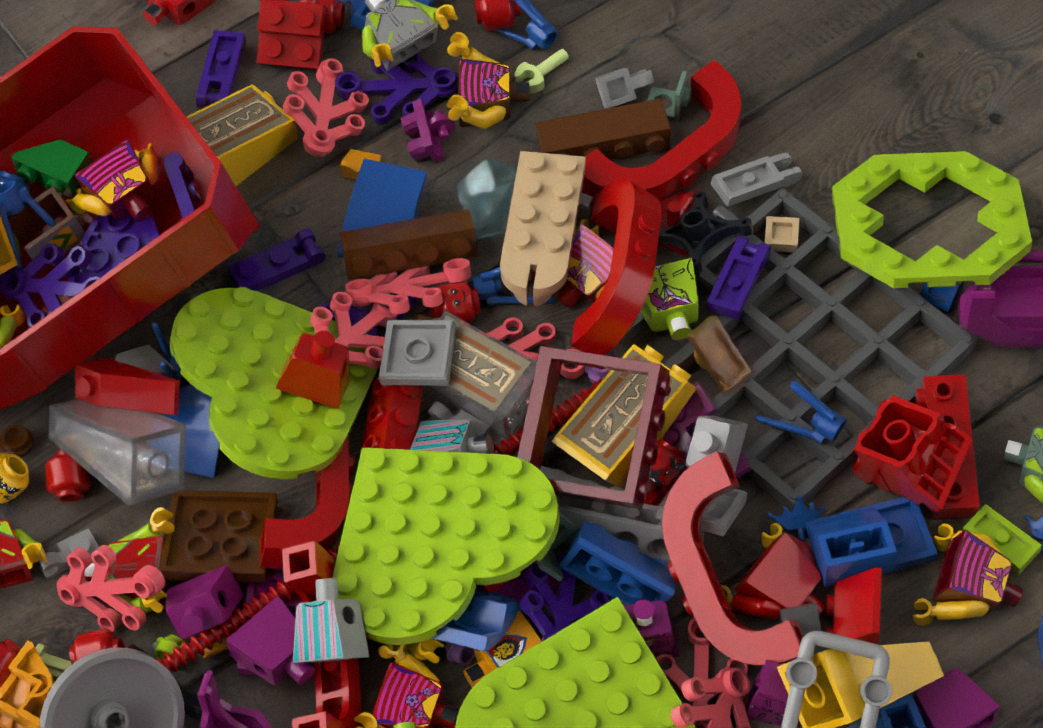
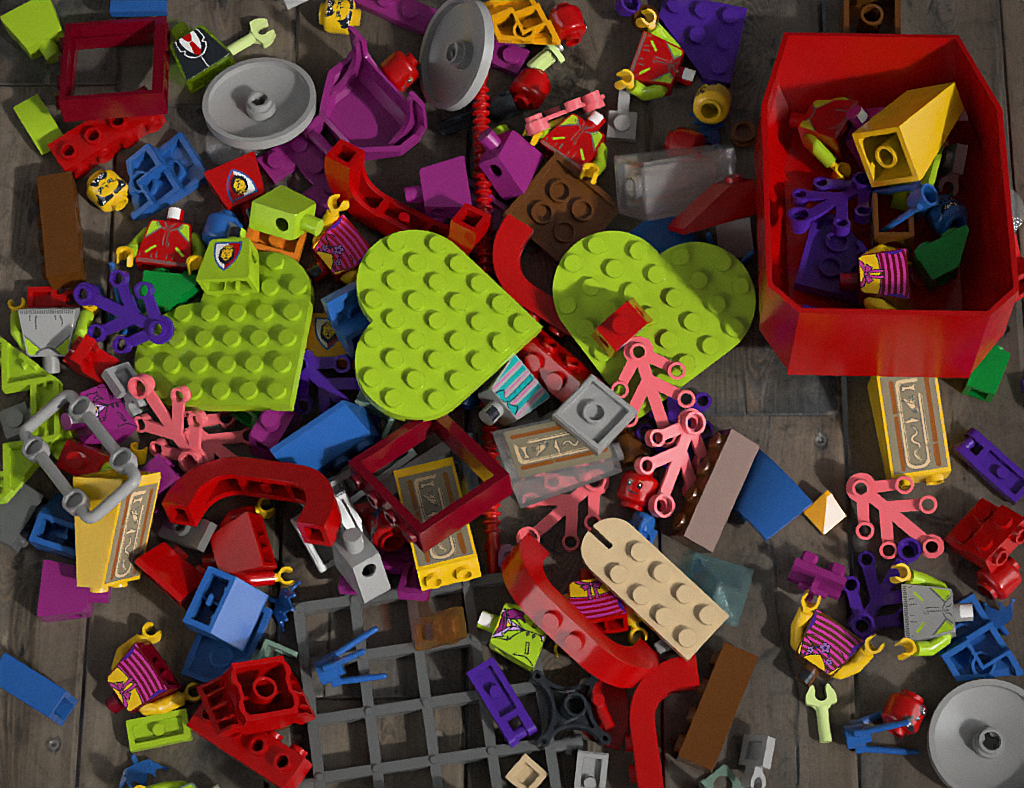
camera: 125 degrees right, 15 degrees up
(36, 476) = (708, 130): none -> blue piece
(277, 262) = (773, 397): dark purple plate -> none
(329, 627) = (410, 212): light grey torso -> none
(859, 498) = (269, 645): none -> sand green bracket

